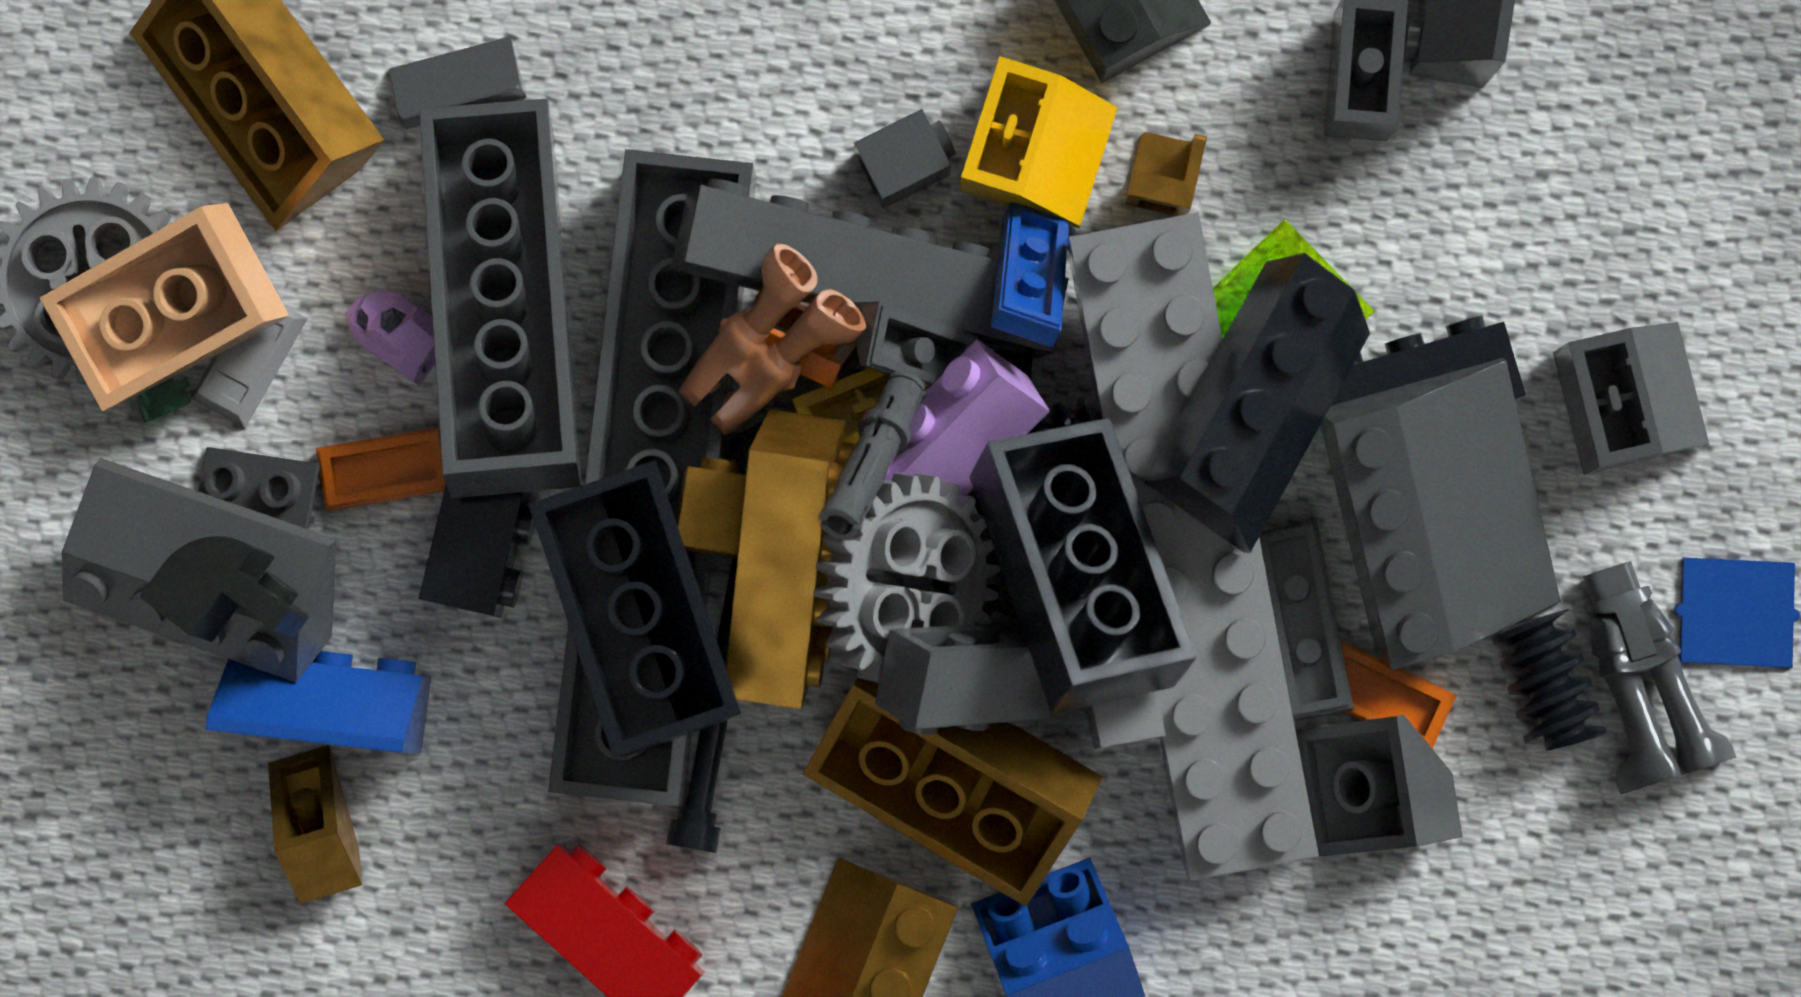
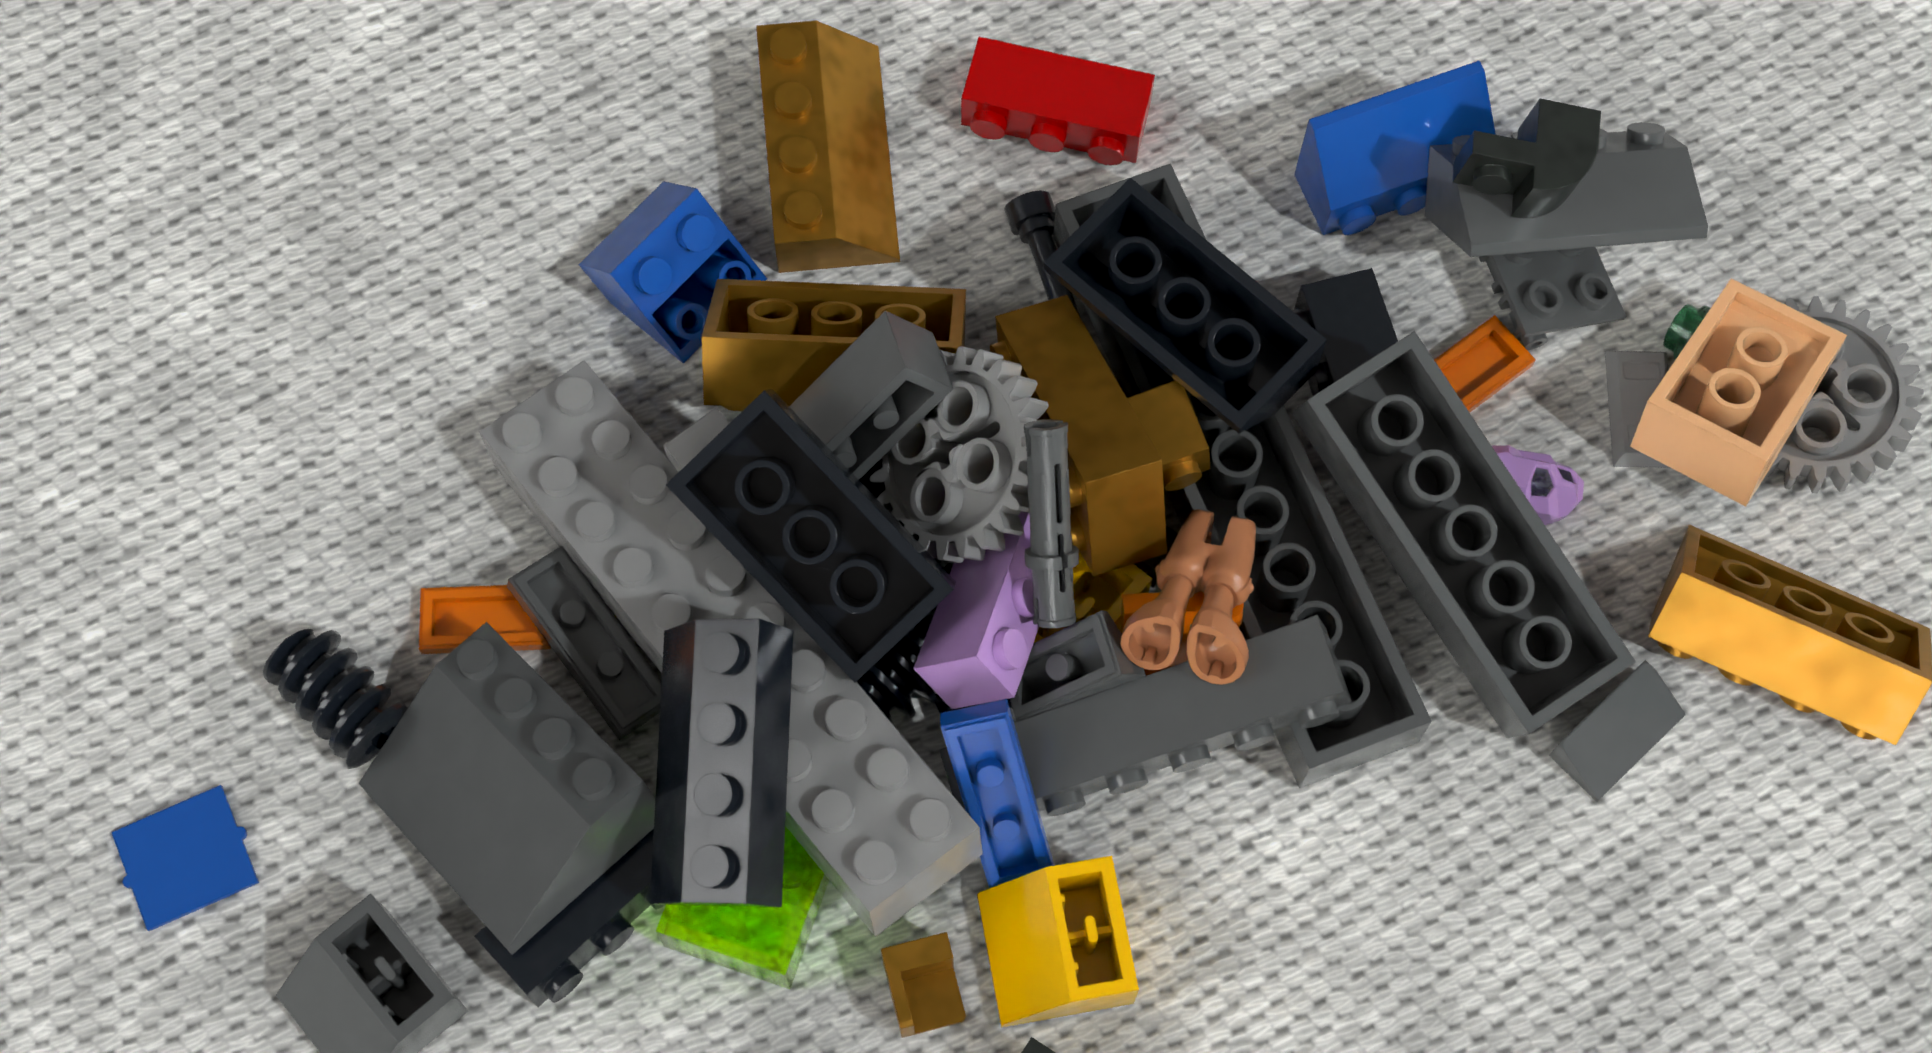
camera: 150 degrees right, 15 degrees down
(313, 825) = (1339, 57): pearl gold slope -> none
(905, 157) = (1174, 868): dark grey brick -> none
(1376, 787) = (452, 523): dark grey slope -> none
(1630, 641) = (271, 773): dark grey piece -> none

